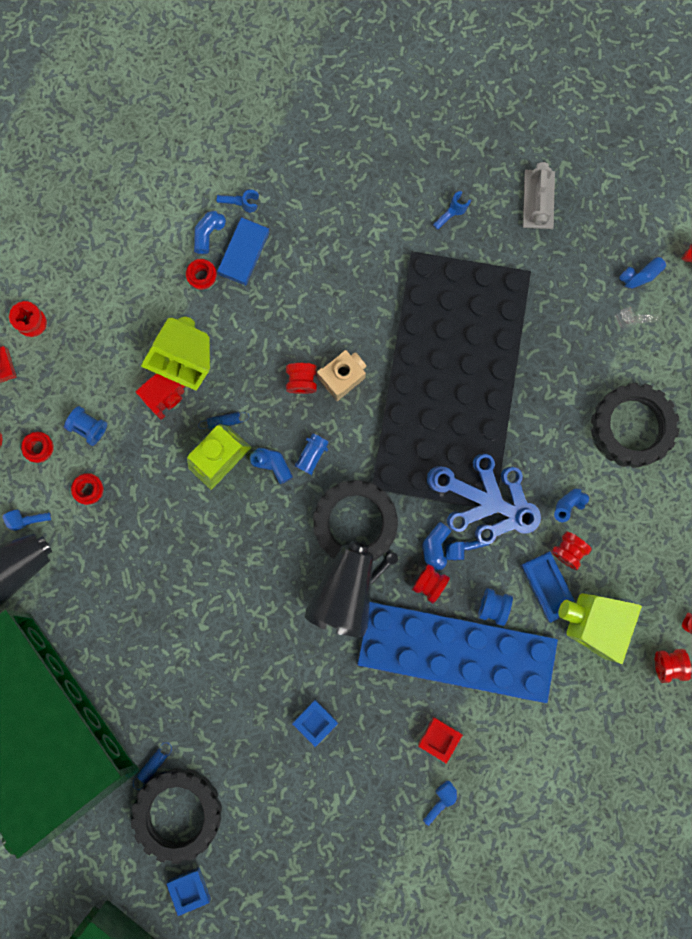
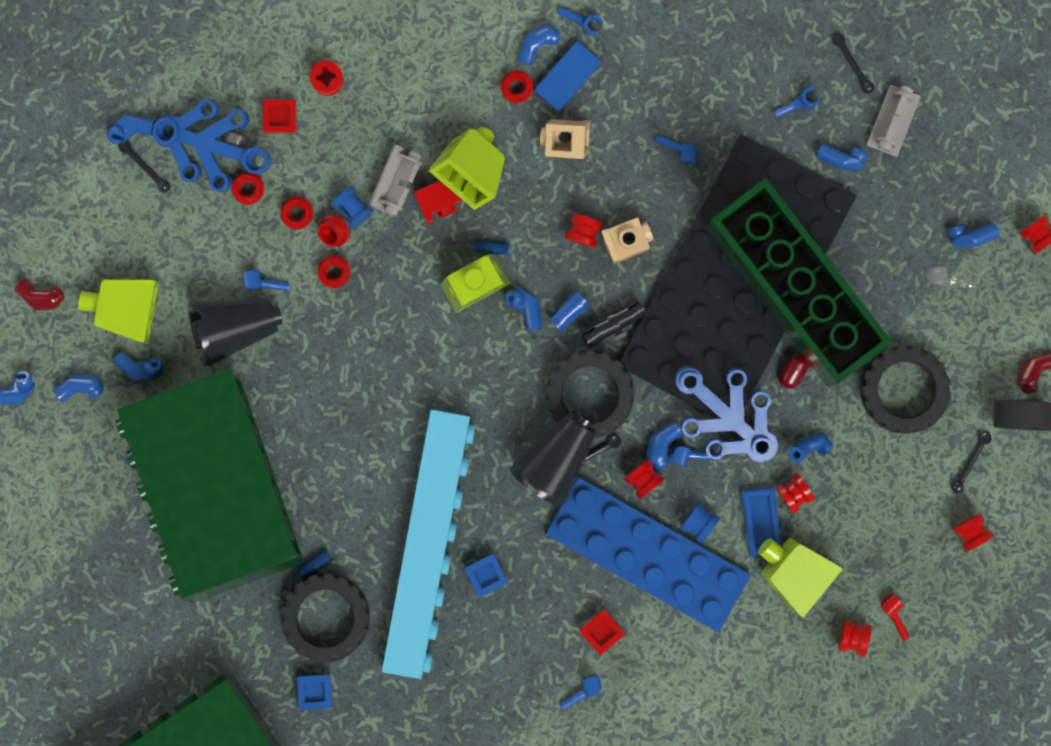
camera: 25 degrees right, 5 degrees up
(75, 452) = (333, 231): none -> red plate
(116, 388) = (391, 188): none -> light grey hinge
(245, 303) = (555, 147): none -> tan brick
(250, 716) = (426, 544): none -> medium azure brick
(354, 452) = (612, 323): none -> black pin
(370, 281) = (689, 153): none -> blue hand
(467, 149) = (839, 41): none -> black hinge
(516, 244) = (840, 160): none -> blue arm
(518, 352) = (797, 284): none -> dark green brick
(532, 438) = (794, 372): none -> dark red arm

